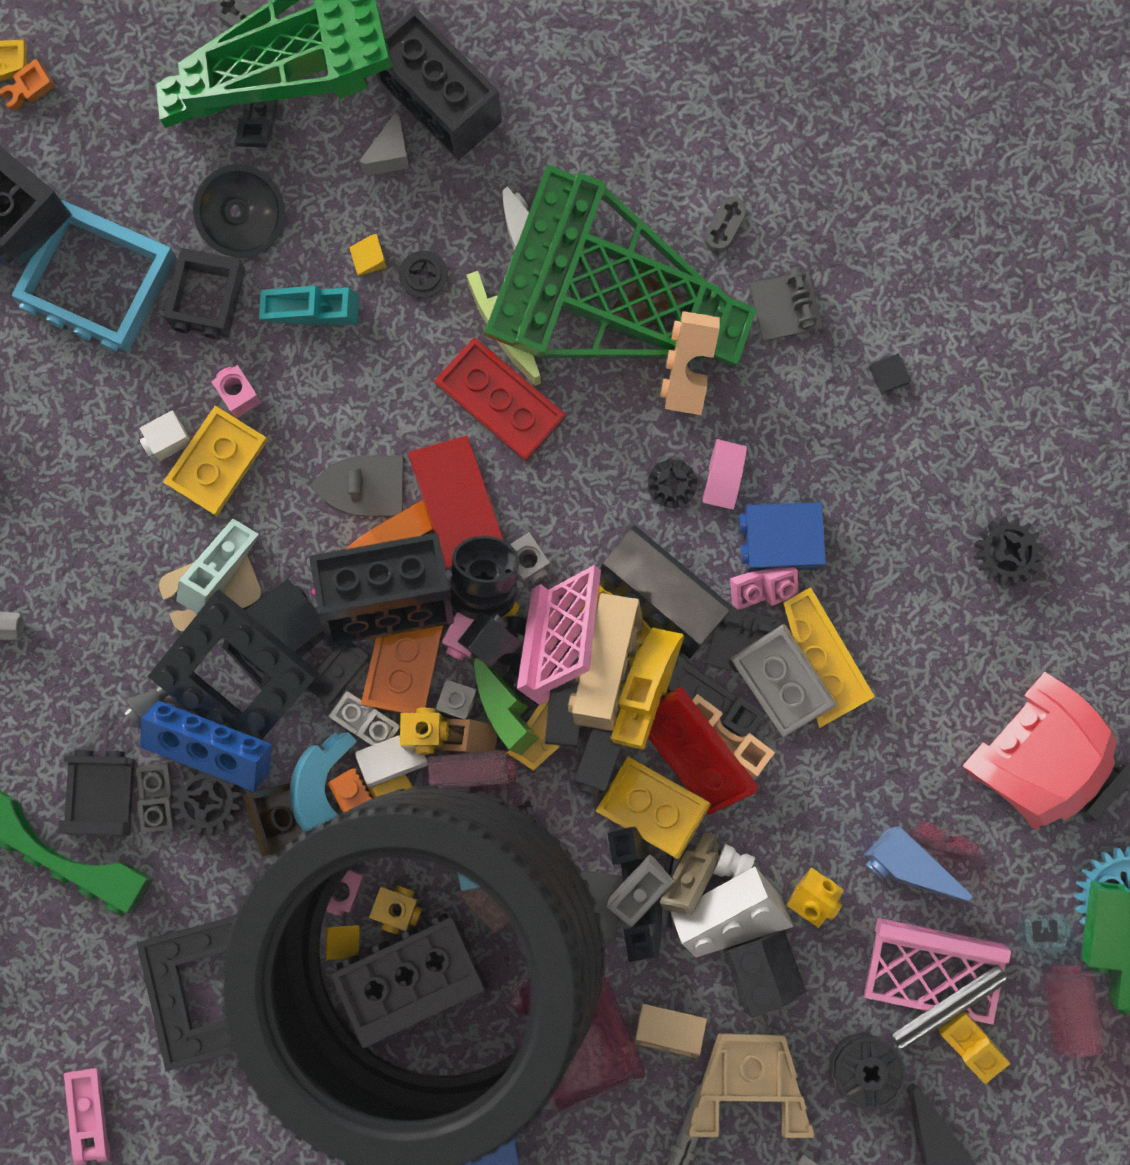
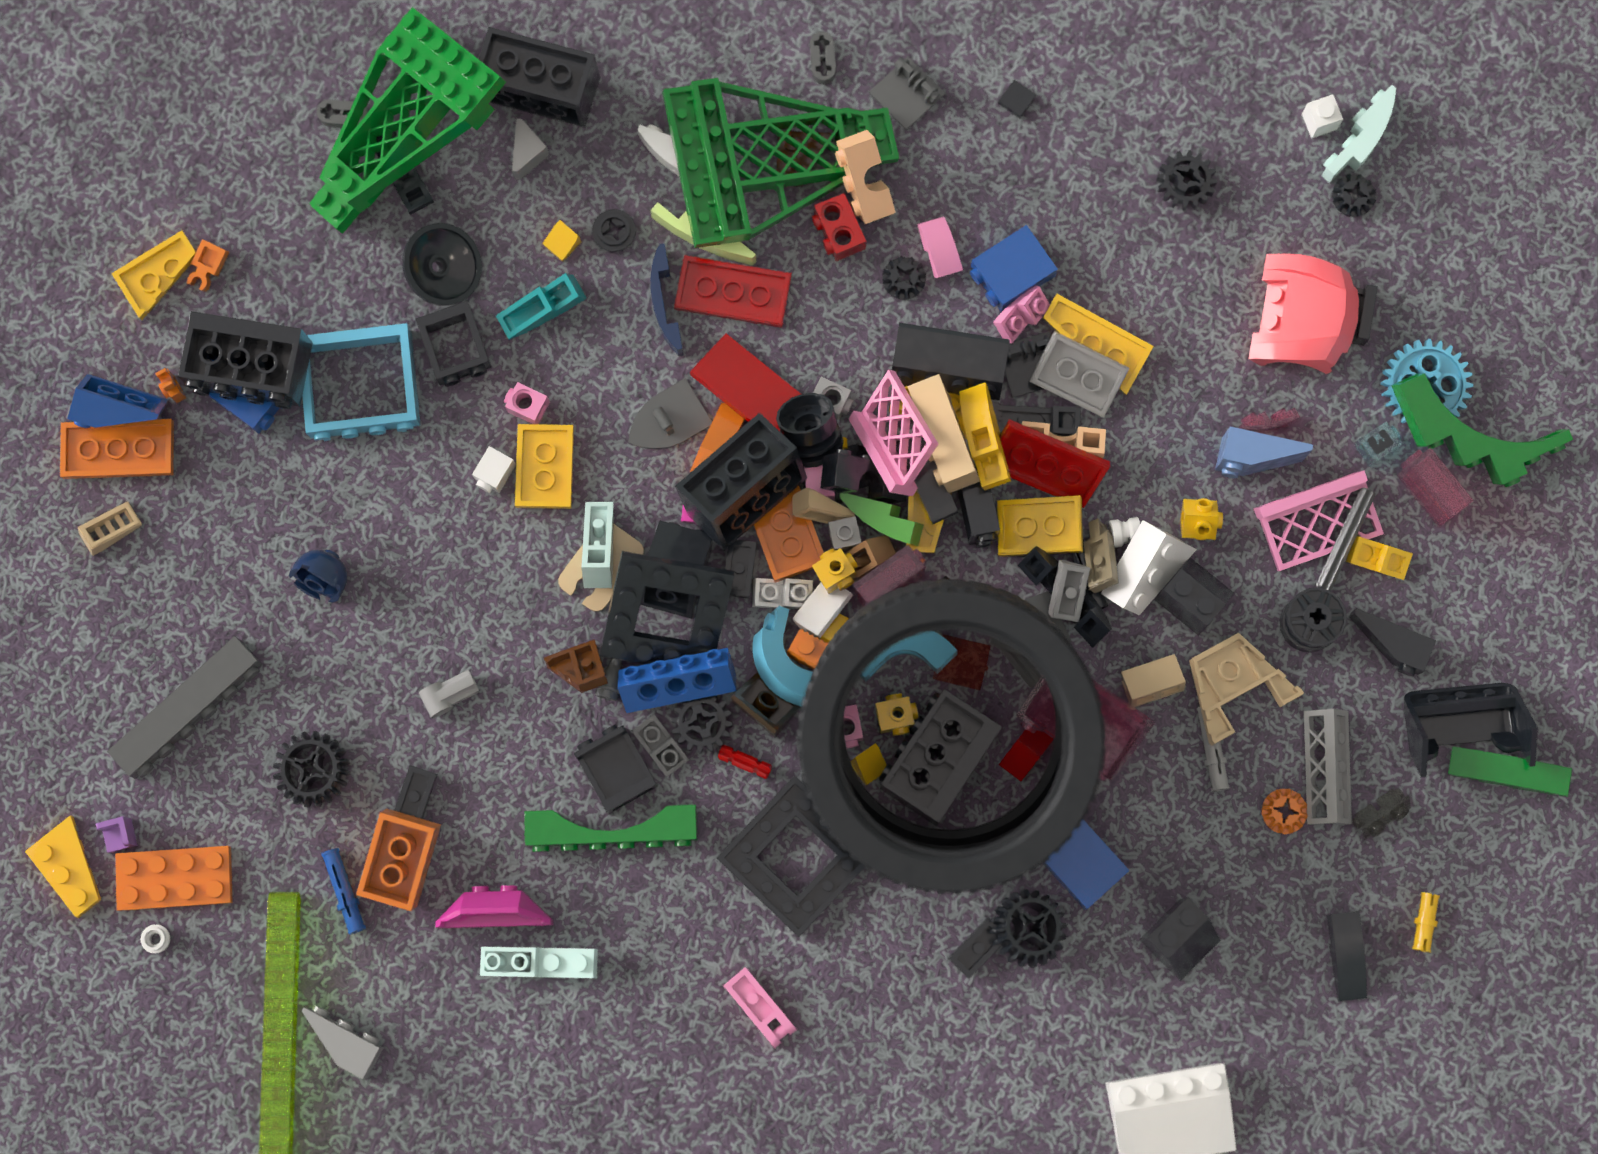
camera: 30 degrees left, 0 degrees up
(125, 674) = (579, 666): none -> reddish brown wing
(225, 863) = (745, 761): none -> red axle
(443, 336) = (660, 270): none -> dark blue slope
(444, 657) = (817, 507): none -> tan slope
(498, 1026) = (1025, 753): none -> red slope
(644, 398) = (845, 225): none -> red brick

